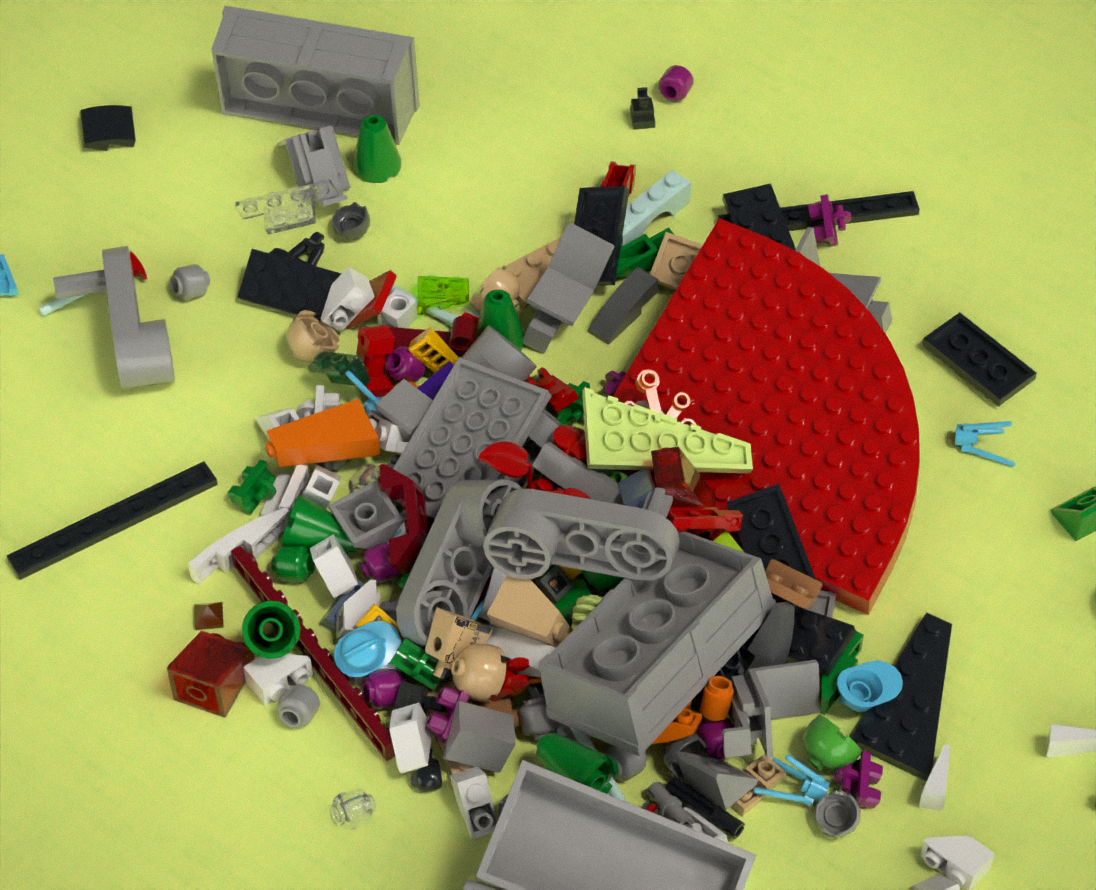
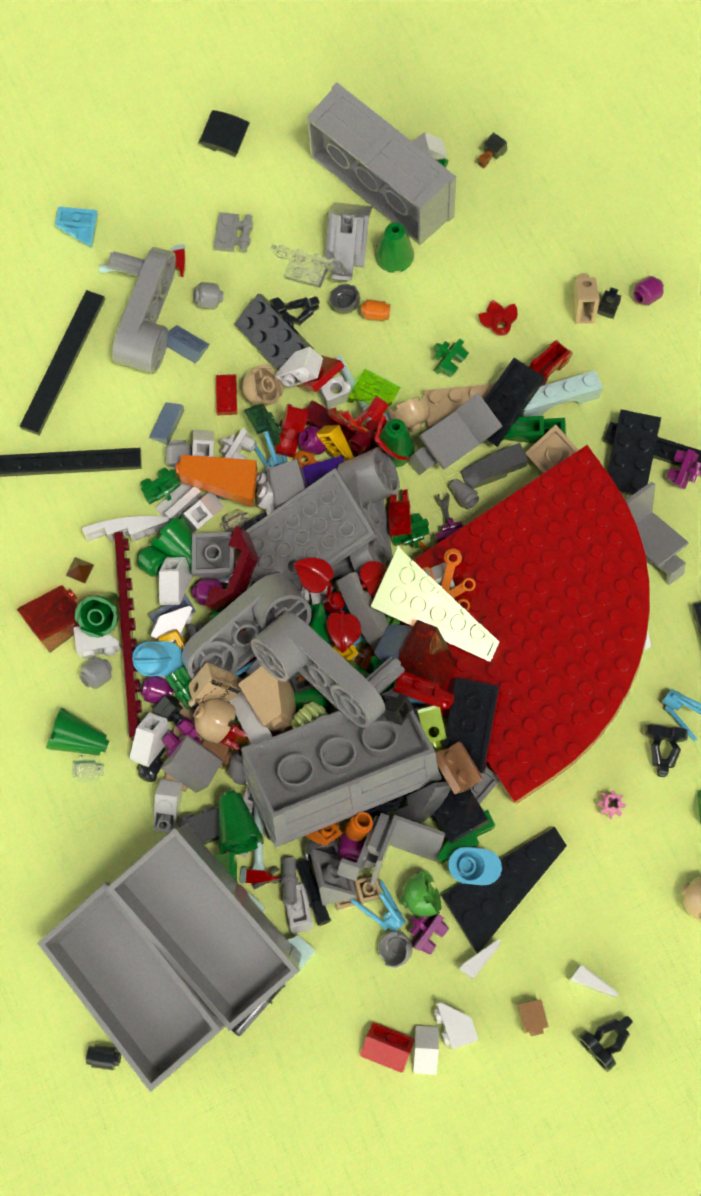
camera: 30 degrees right, 20 degrees up
(54, 420) = (62, 362): none -> black tile
(171, 217) = (227, 229): none -> light grey plate
(193, 341) = (186, 344): none -> sand blue slope
(219, 424) = (167, 422): none -> sand blue slope
(252, 445) = (175, 450): none -> light grey head
(272, 369) = (226, 394): none -> red plate
(315, 778) = (76, 735): none -> green cone
(392, 218) = (375, 310): none -> orange brick
(423, 25) = (493, 147): none -> pearl dark grey piece
(464, 292) = (374, 411): none -> red plant
(500, 227) = (445, 364): none -> green hips
(532, 174) = (497, 315): none -> red plate
(590, 367) = (444, 504): none -> dark grey hand
(607, 345) = (466, 495): none -> light grey cone
(616, 116) = (585, 291): none -> tan torso
(691, 539) = (397, 708): none -> pearl dark grey piece
(971, 561) = (616, 809): none -> bright pink gear
(987, 467) = (673, 736): none -> black piece
(1035, 807) = (533, 1017): none -> medium nougat brick

